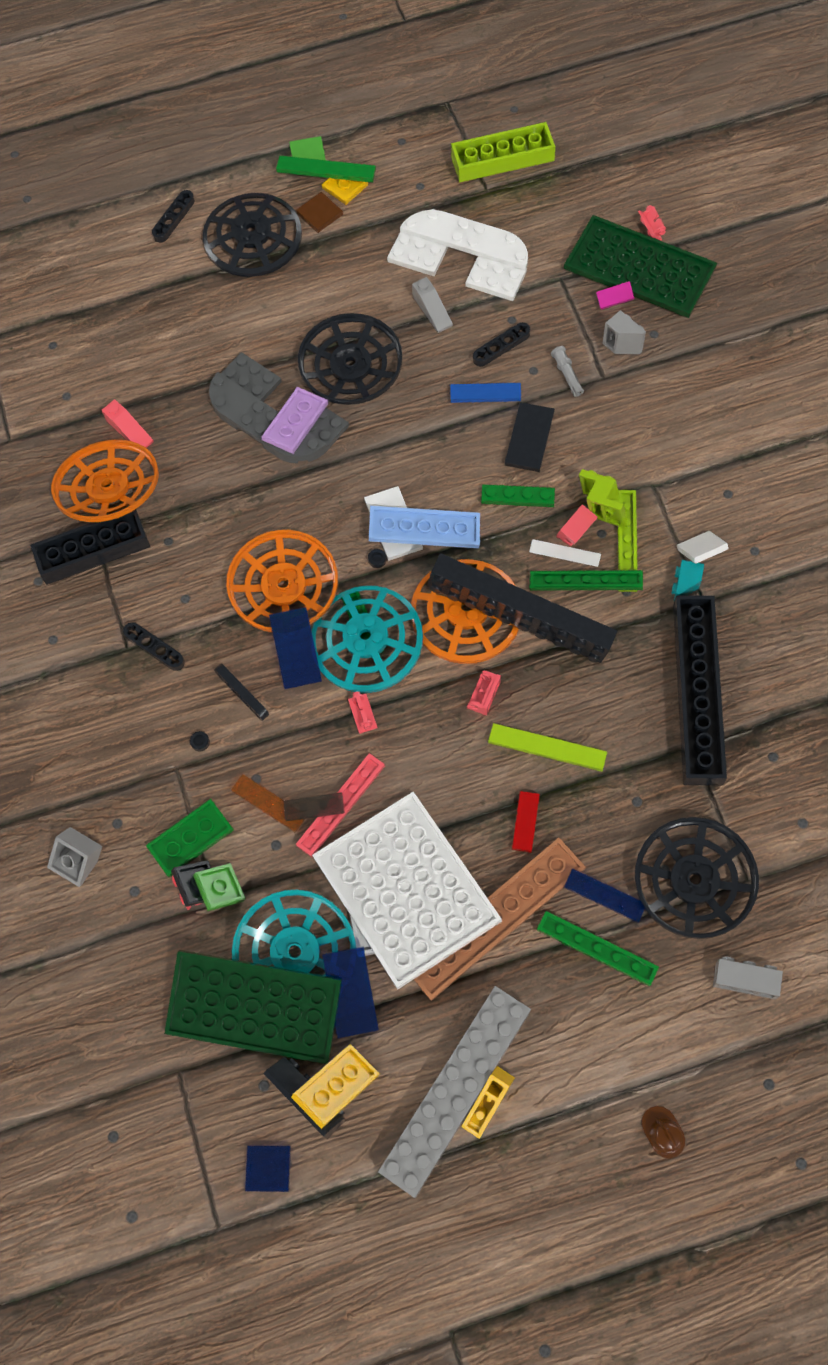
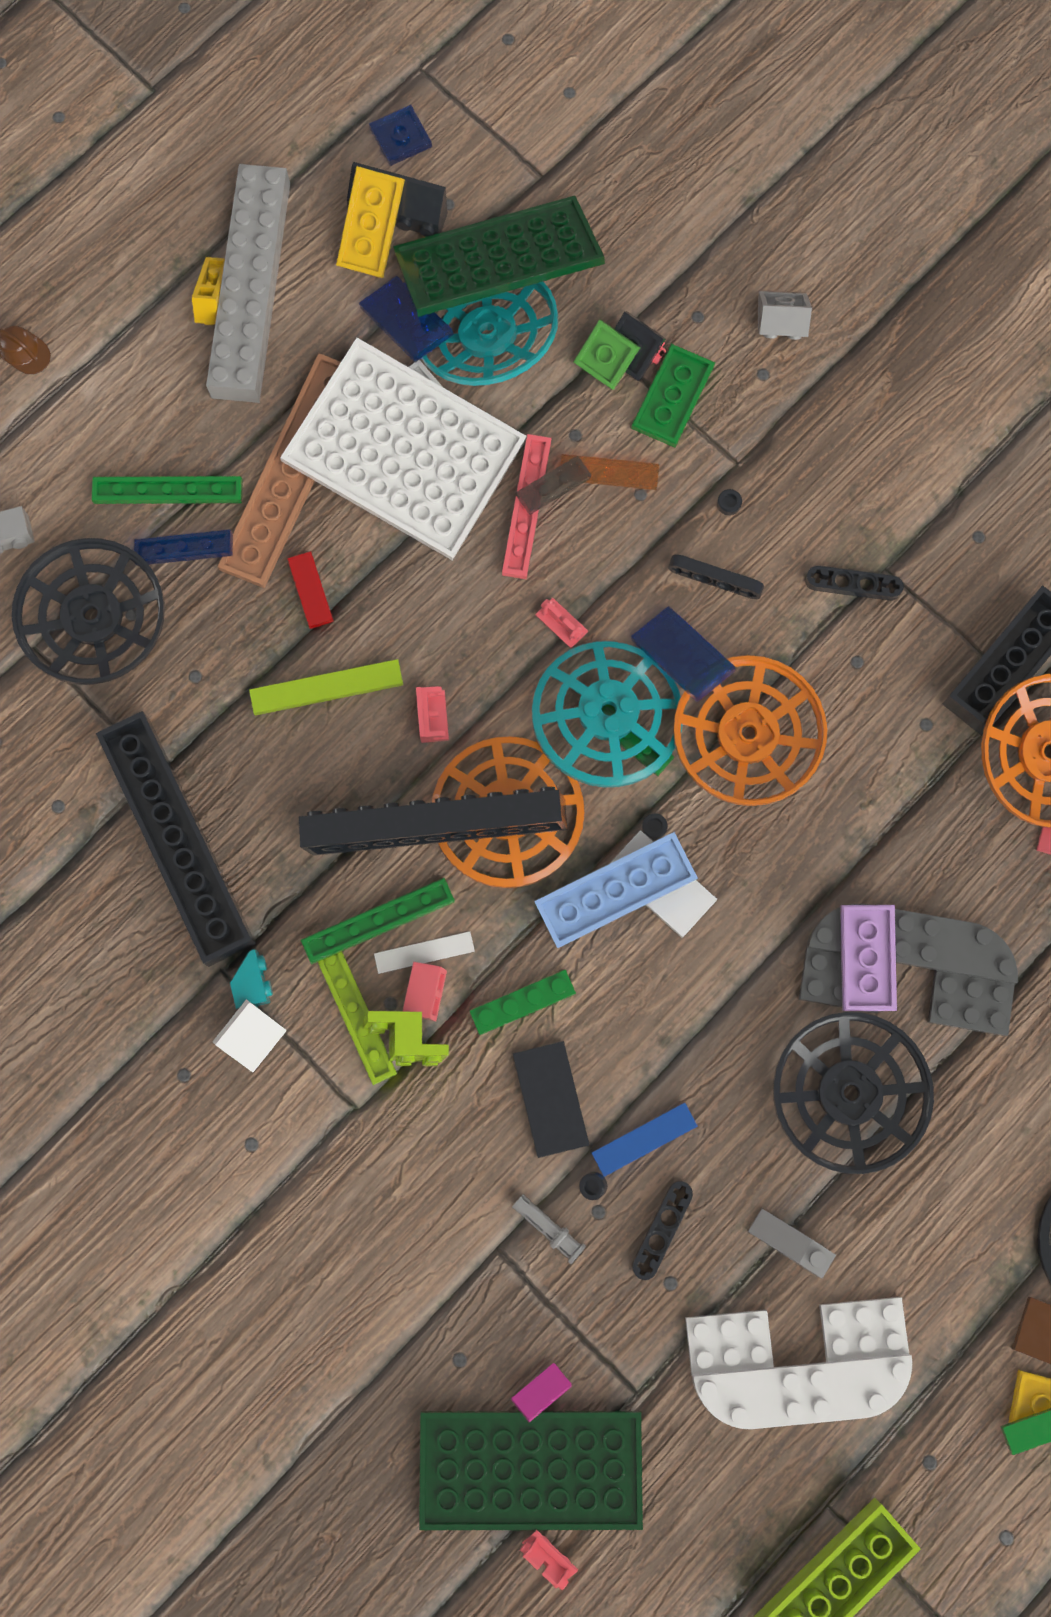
camera: 145 degrees right, 10 degrees up
(529, 381) = (593, 1185): none -> black tile
(623, 335) = (497, 1319): light grey slope -> none

